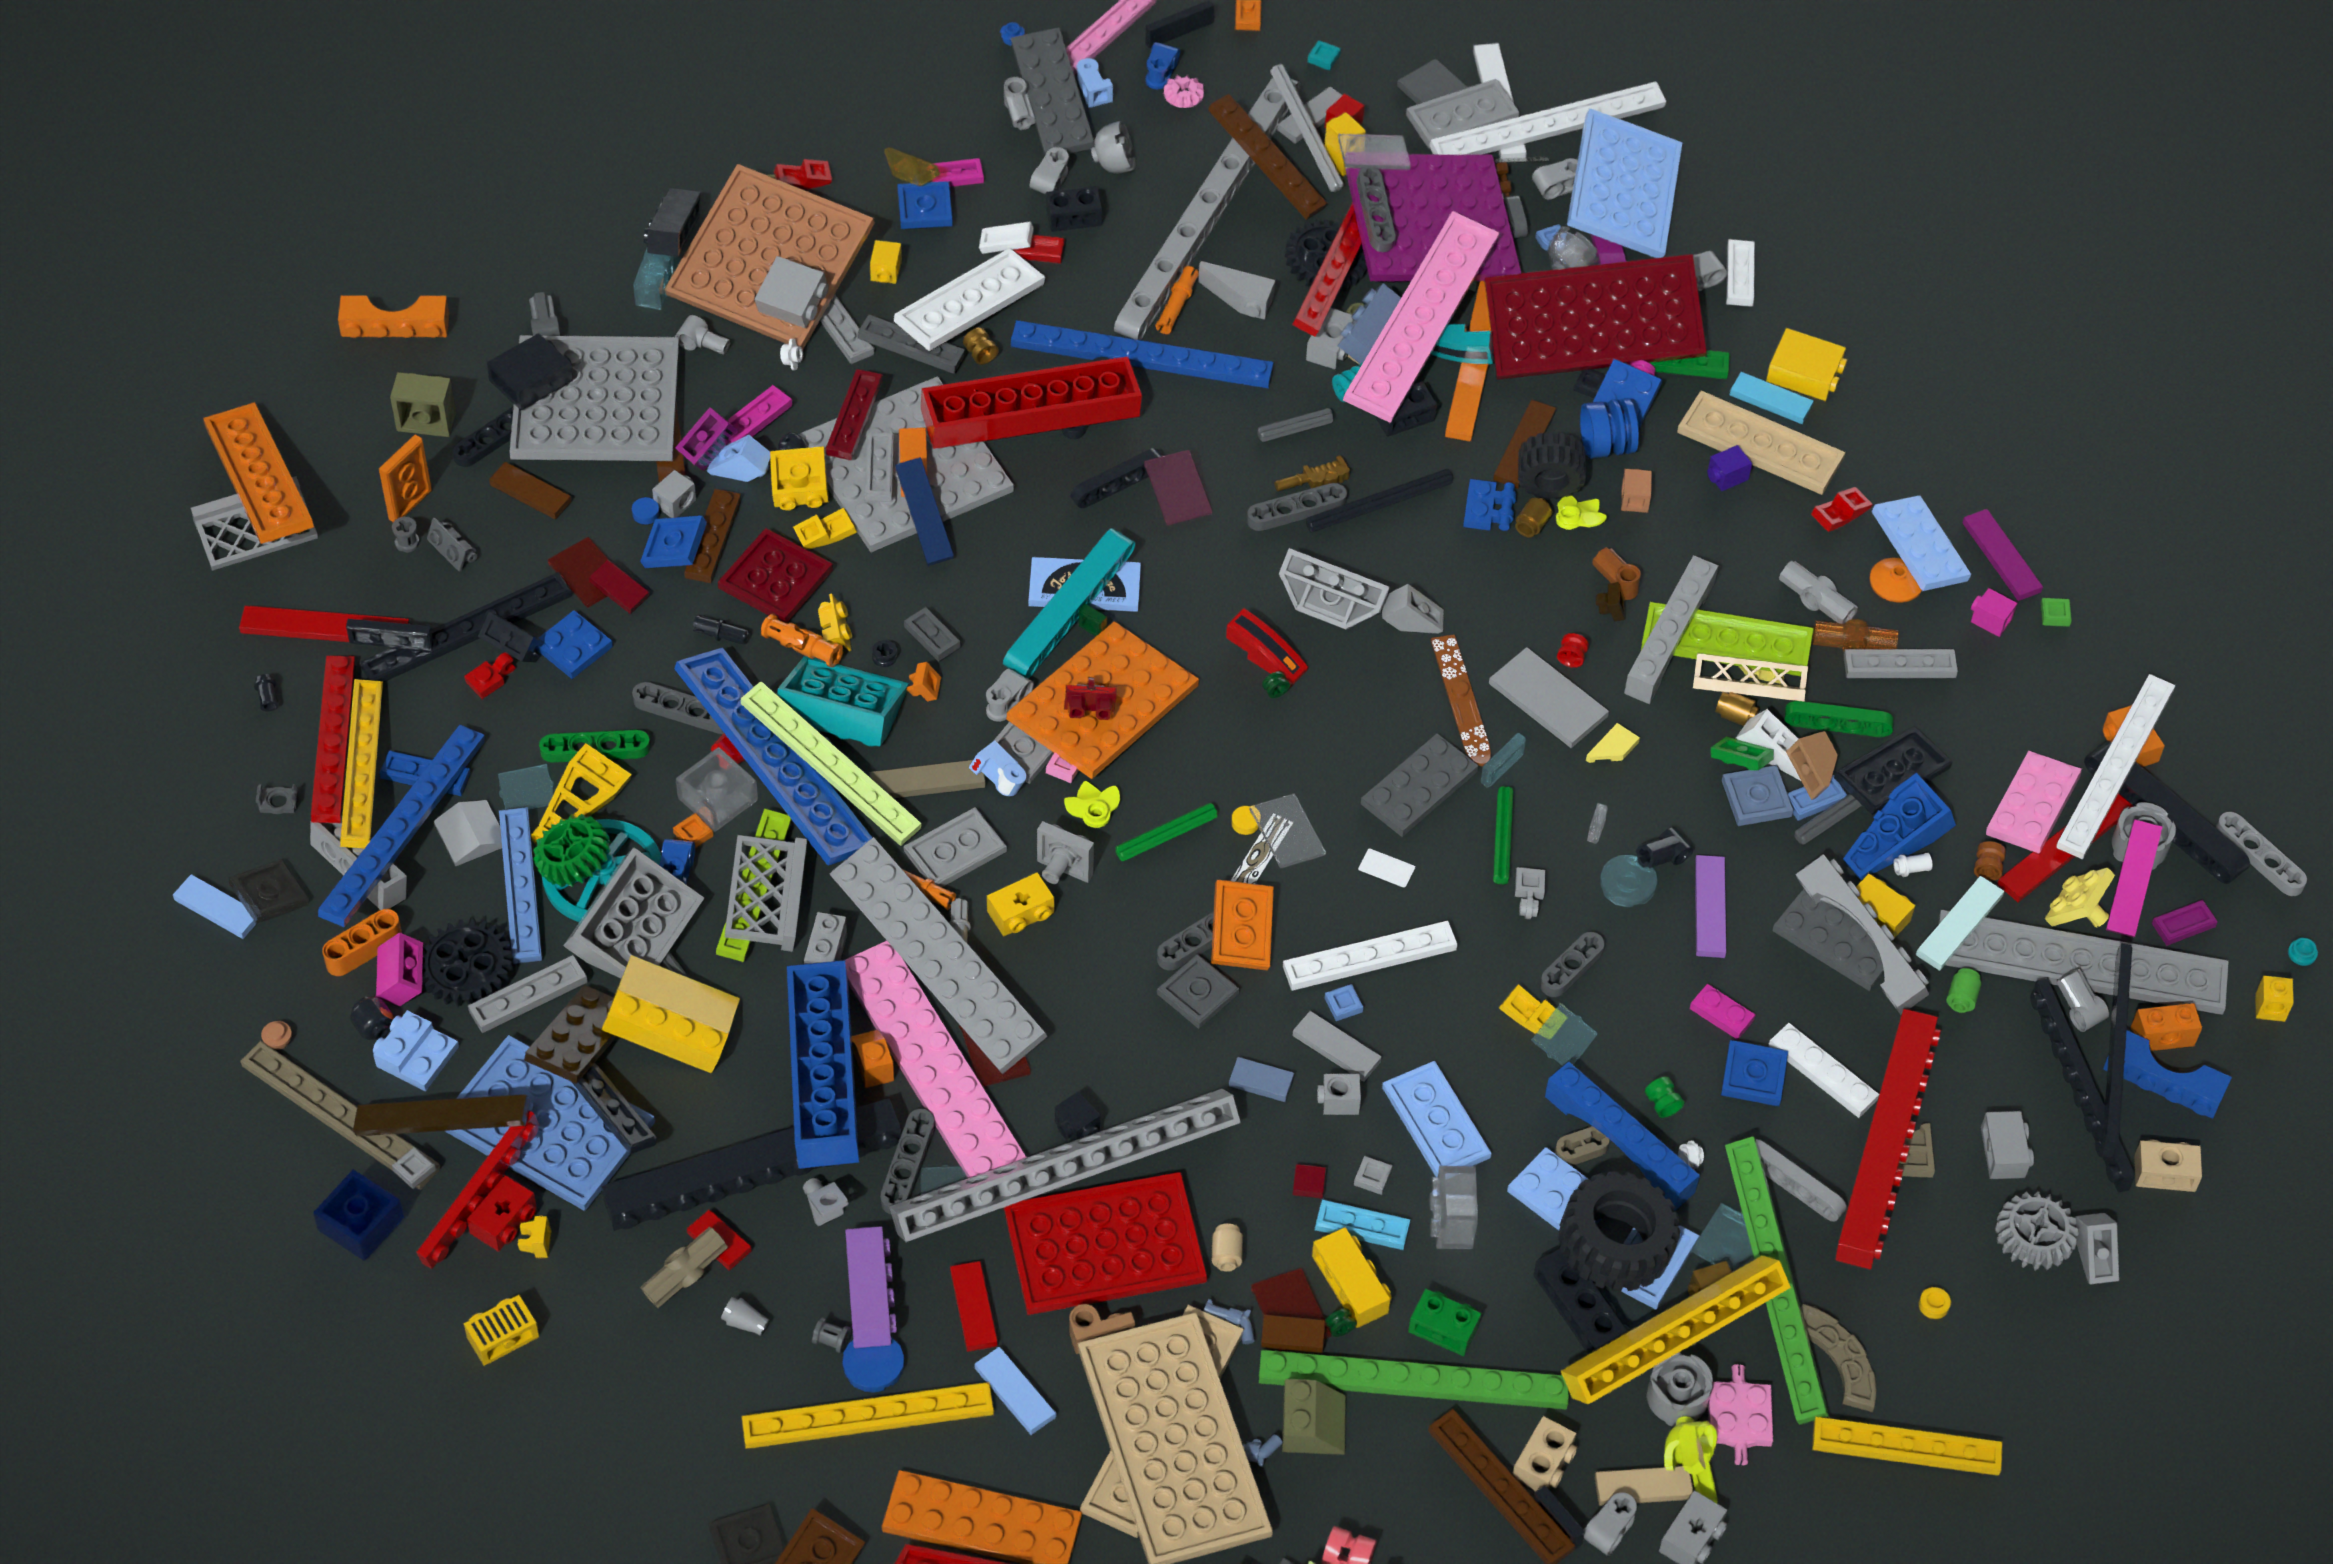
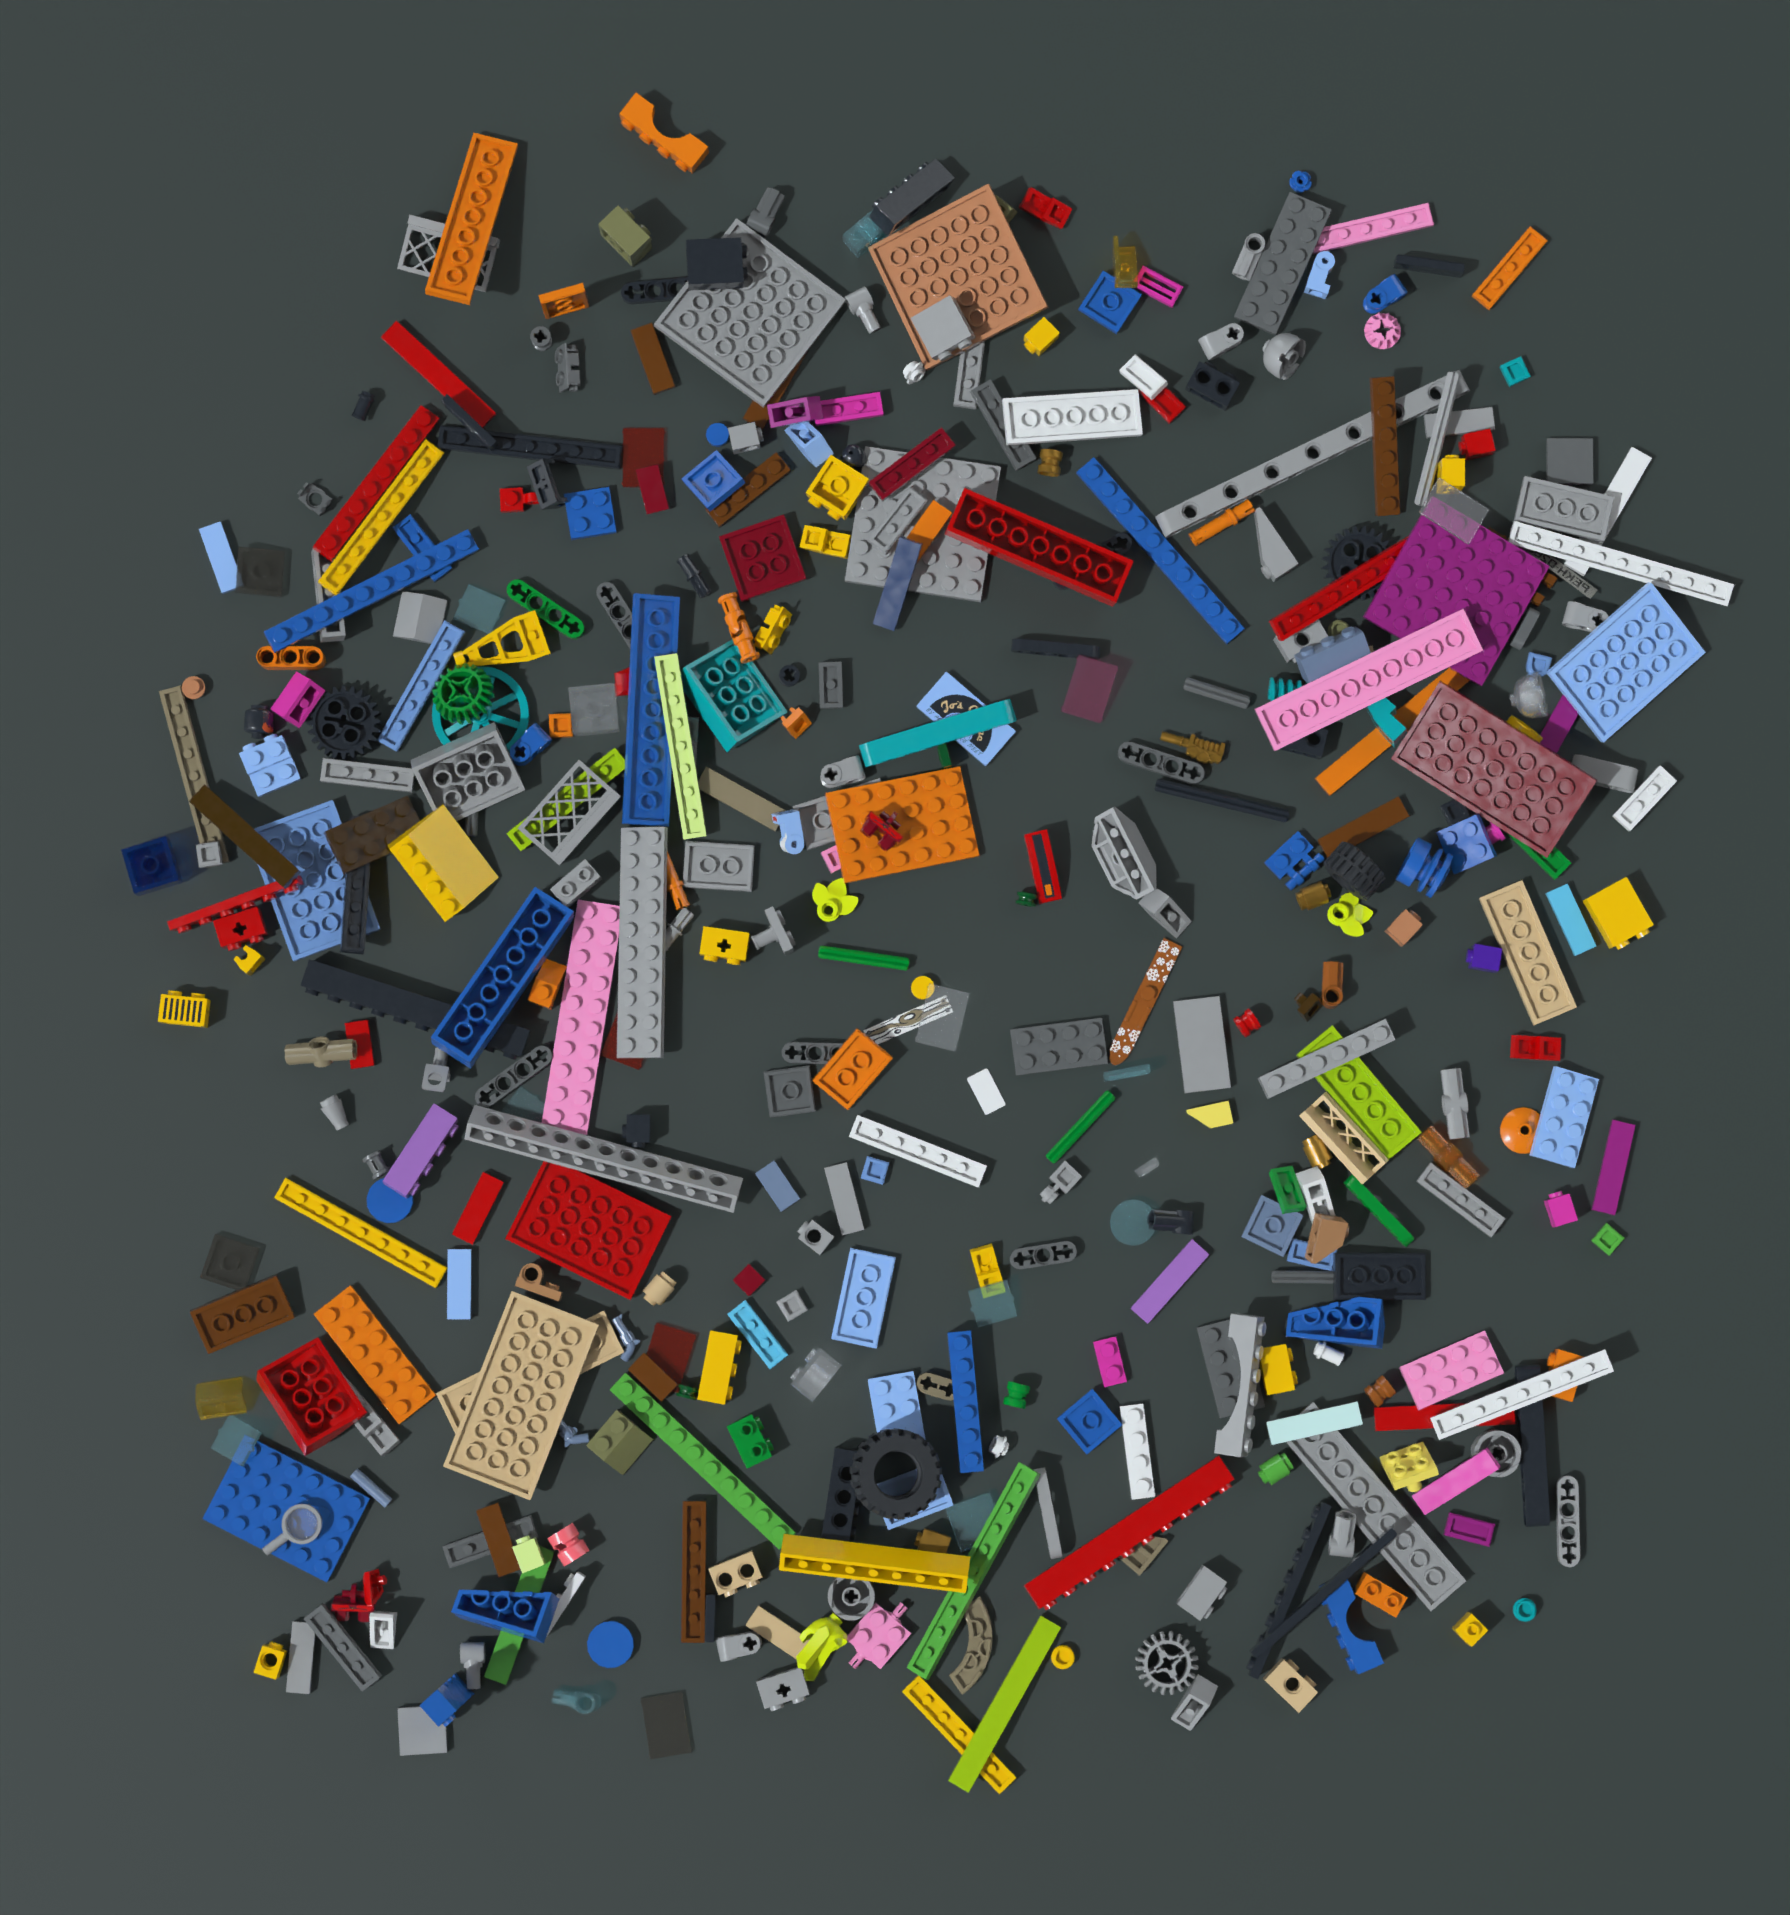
camera: 35 degrees right, 30 degrees up
(1375, 208) = (1413, 566): dark grey beam -> none
(1924, 1383) = (1004, 1704): none -> lime tile

